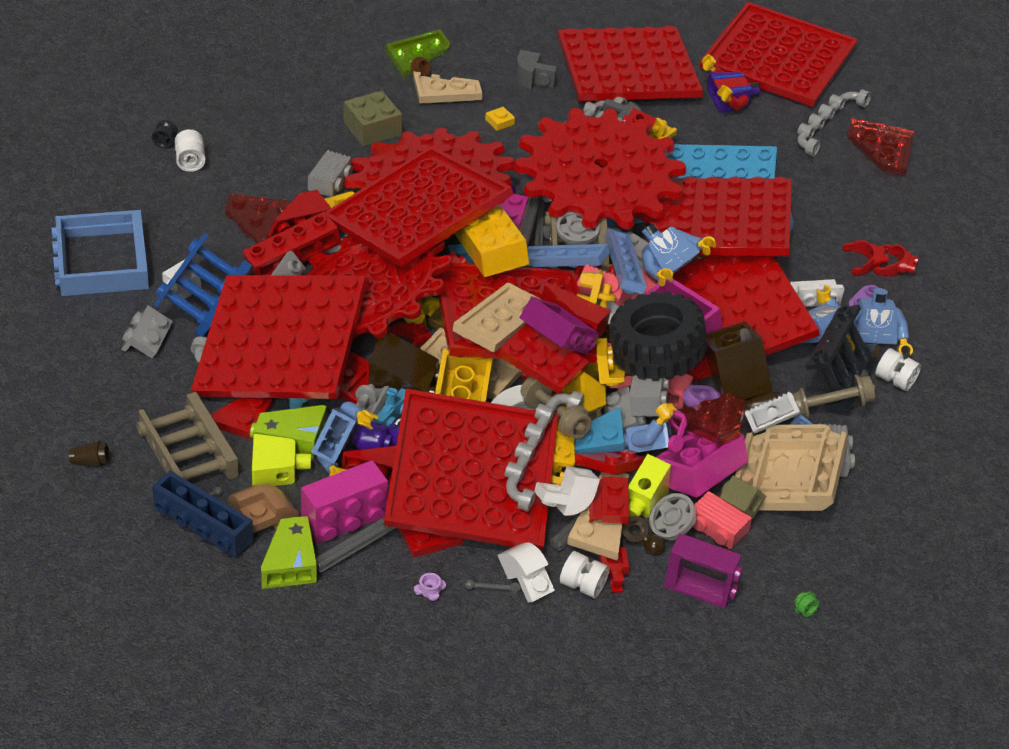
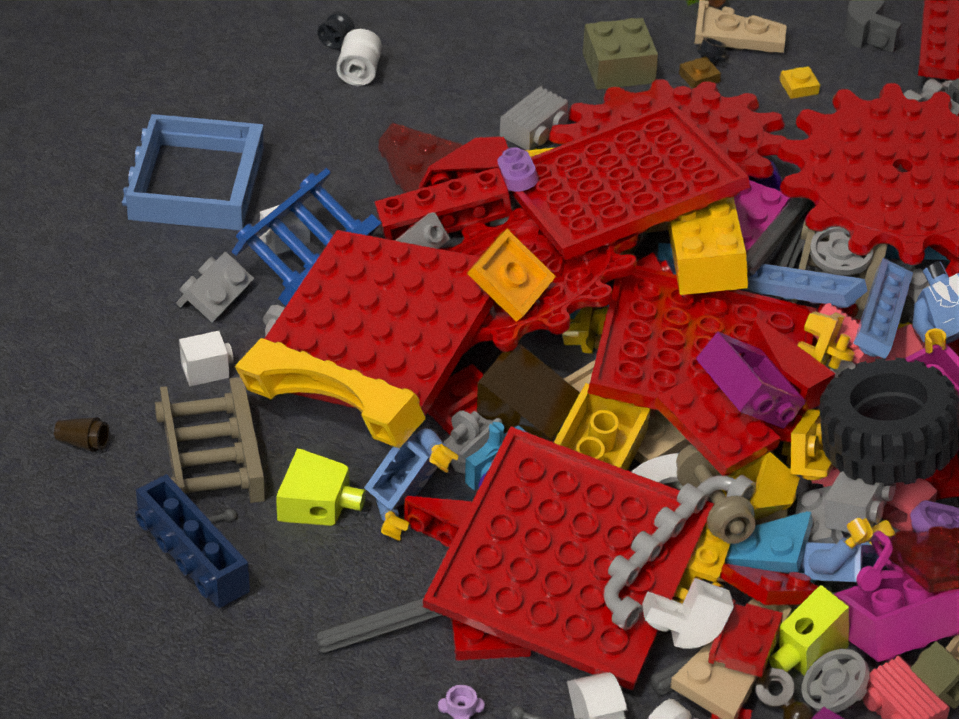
camera: 20 degrees right, 0 degrees up
(159, 384) = (205, 358): none -> white brick
(222, 381) = (276, 369): none -> yellow arch
(240, 415) = (298, 421): red wing -> none
(263, 505) = (278, 548): medium nougat brick -> none
(290, 555) = (286, 620): lime slope -> none
(299, 424) = (347, 445): lime slope -> none
(339, 210) = (517, 169): none -> medium lavender plate
(344, 501) = (380, 563): dark pink brick -> none
(370, 284) = (511, 275): none -> light orange plate
(375, 438) = (457, 484): dark purple head -> none
(412, 331) = (568, 352): red helmet -> none
(430, 122) = (699, 71): none -> pearl gold plate
(433, 105) = (712, 49): none -> black plate
(494, 318) = (666, 353): tan plate -> none

